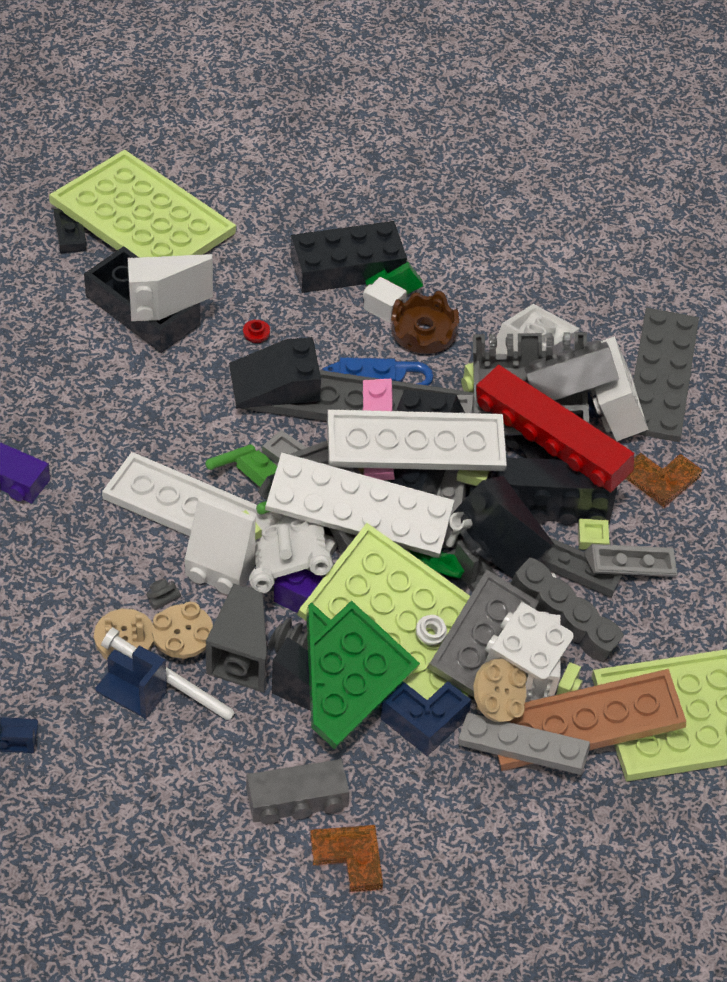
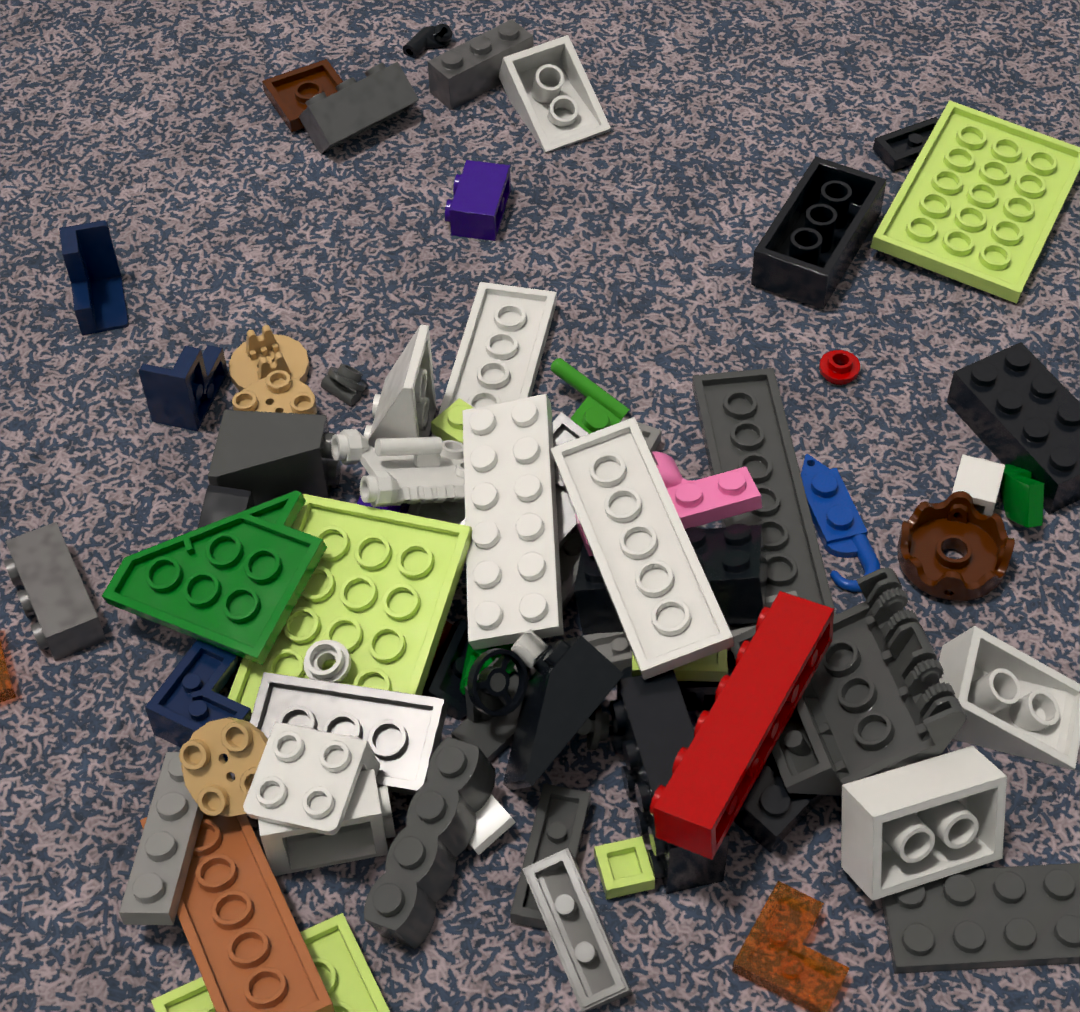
camera: 80 degrees right, 0 degrees up
(113, 640) = (233, 341): white bar -> none
(168, 284) = (806, 215): white slope -> none
(277, 375) = (749, 399): black slope -> none
(570, 679) = (308, 884): yellowish green plate -> none
(573, 370) = (875, 719): flat silver brick -> none

